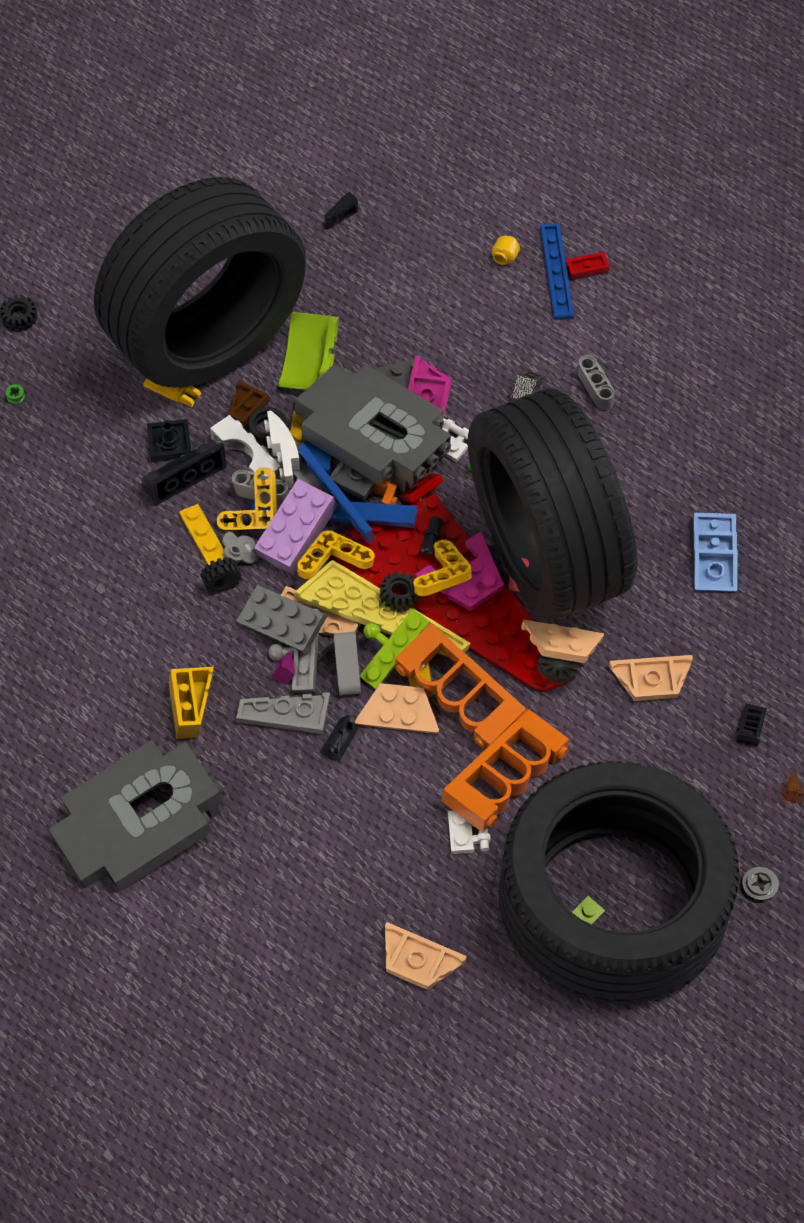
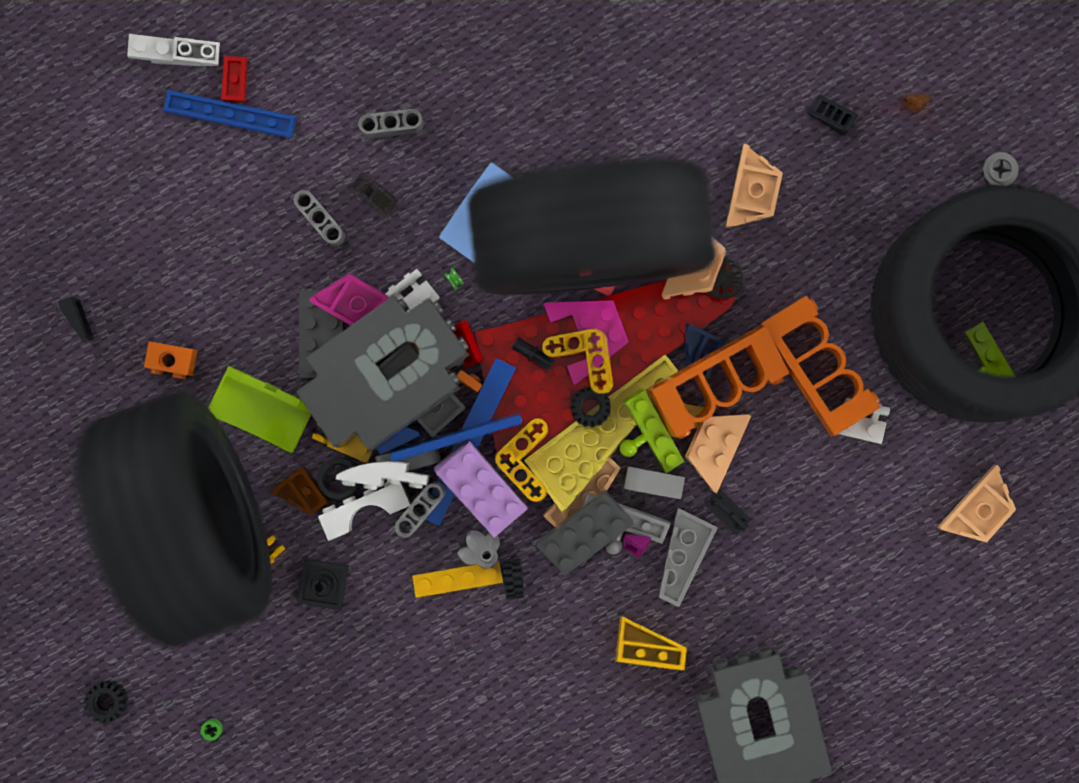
camera: 75 degrees left, 30 degrees up
(185, 471) = (371, 581): black slope -> none
(257, 514) = (450, 520): yellow beam -> none
(330, 282) = (157, 358): none -> orange brick
(491, 353) = (312, 211): none -> light grey beam
(491, 664) = (699, 344): none -> dark blue wing
(505, 250) = (187, 159): yellow head -> none
(593, 217) = (173, 51): none -> white slope
(715, 552) = (631, 78): light blue slope -> none

